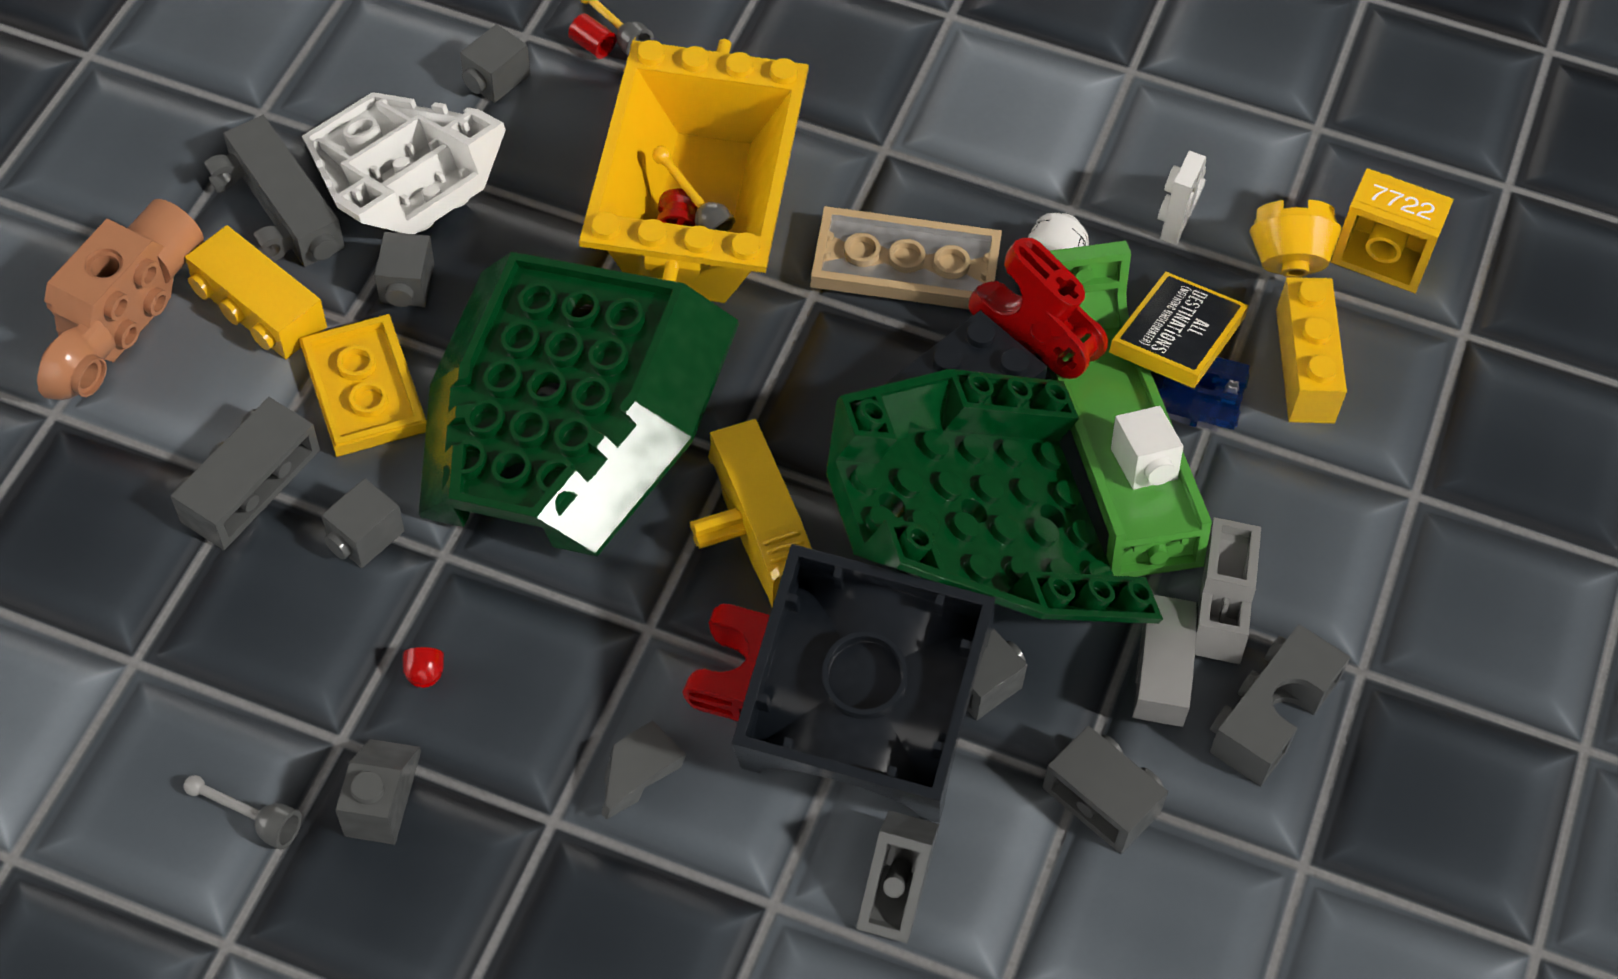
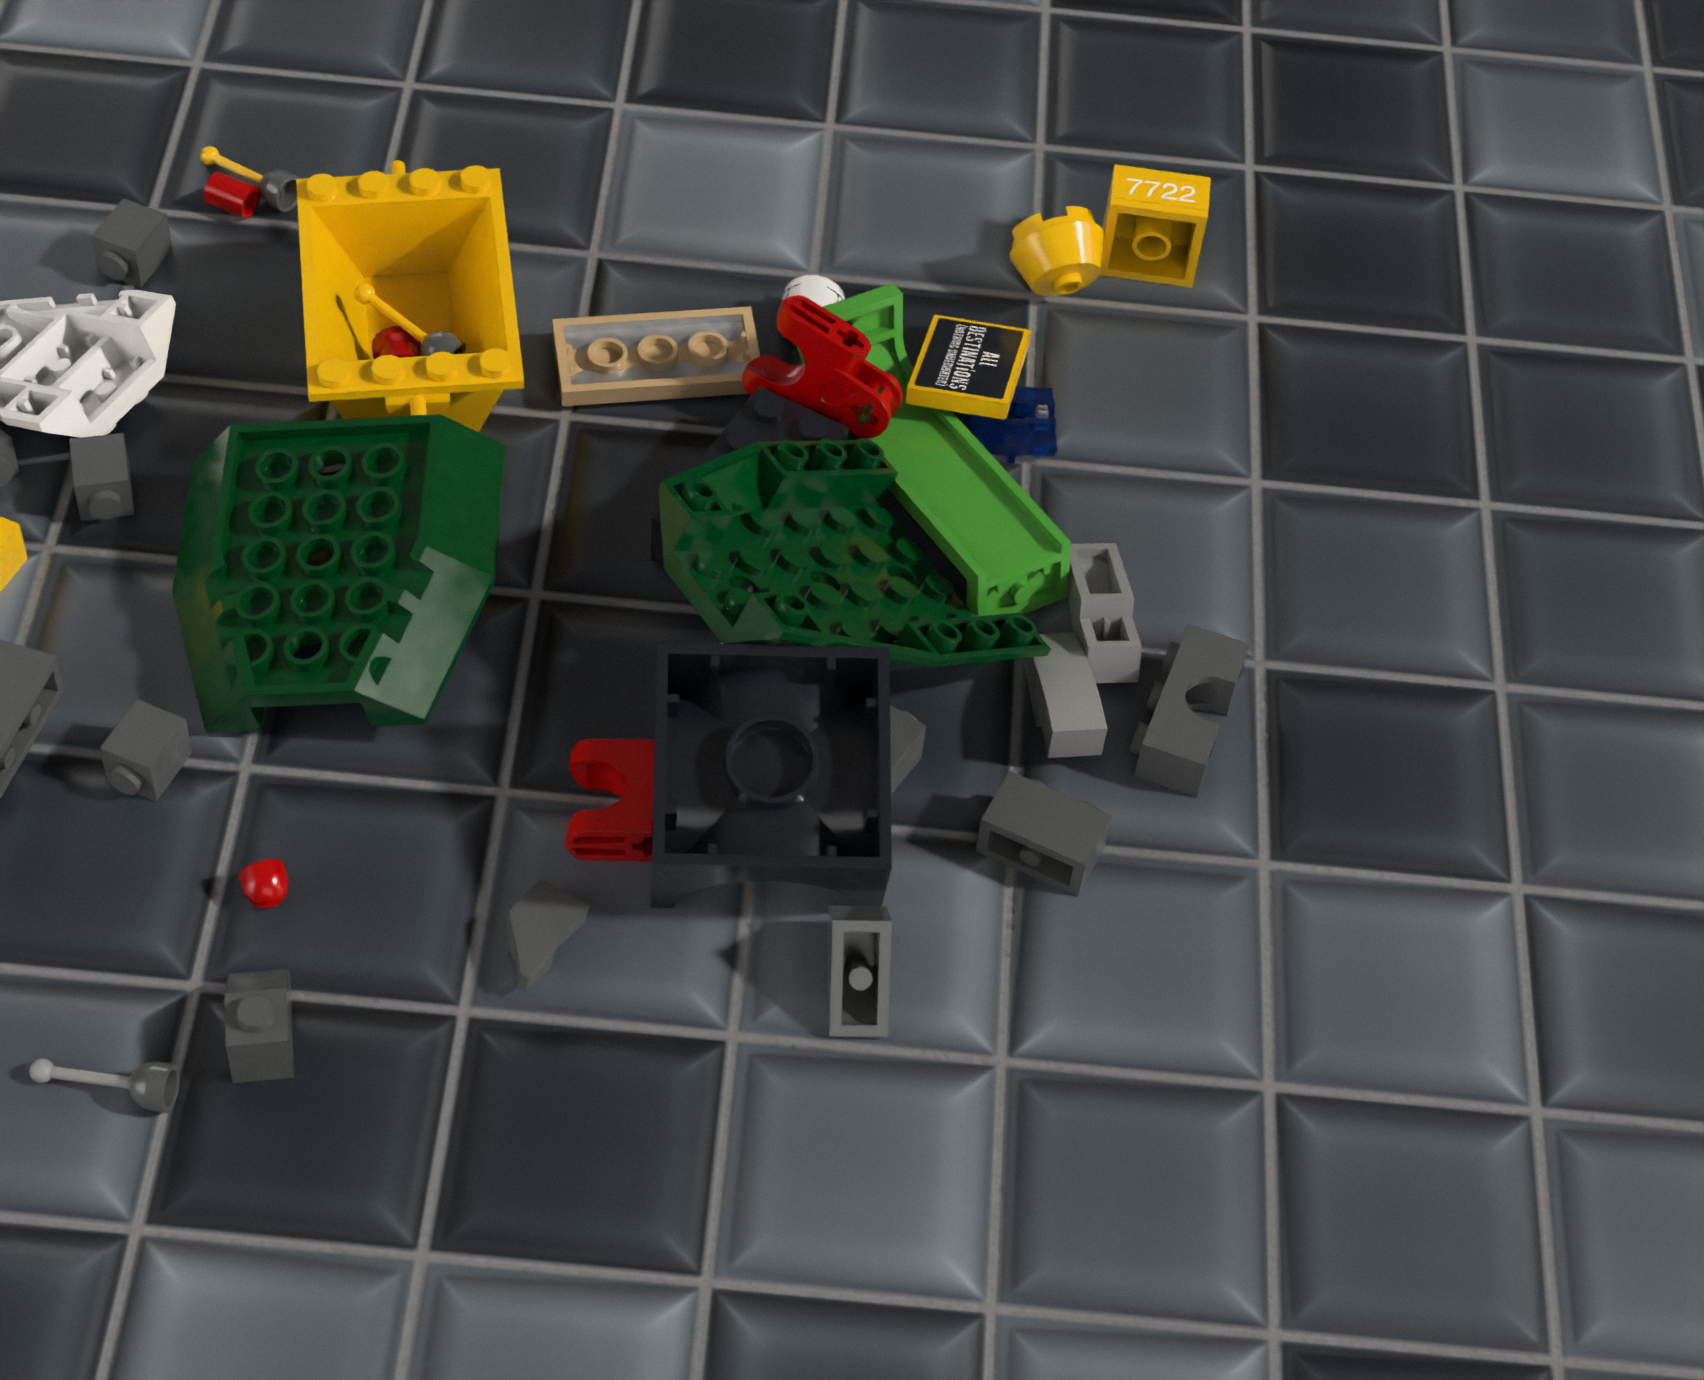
camera: 20 degrees left, 5 degrees down
(363, 385) = (92, 609): yellow tile -> none
(756, 502) = (584, 639): yellow piece -> none
(1146, 447) = (980, 483): white brick -> none
(1185, 186) = (929, 220): white wing -> none
(1311, 350) = (1109, 360): yellow brick -> none

